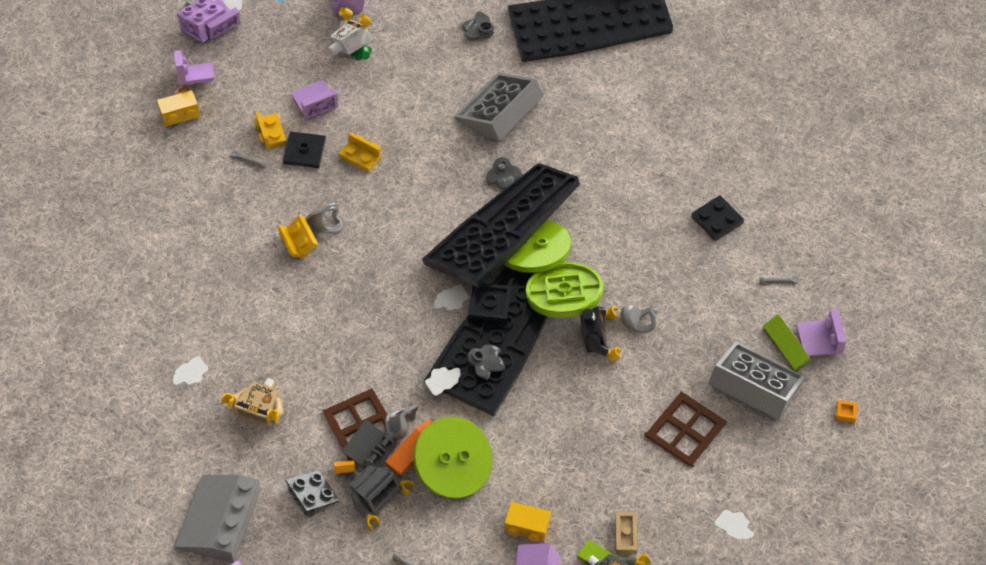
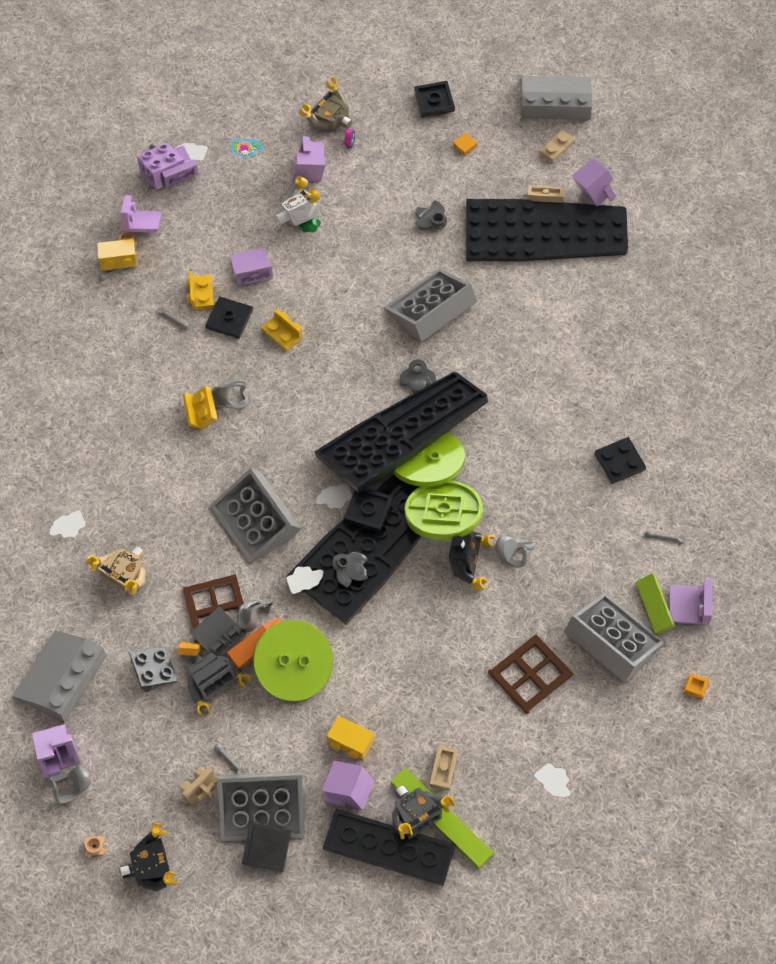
camera: 15 degrees right, 5 degrees up
(377, 329) = (255, 516): none -> light grey slope

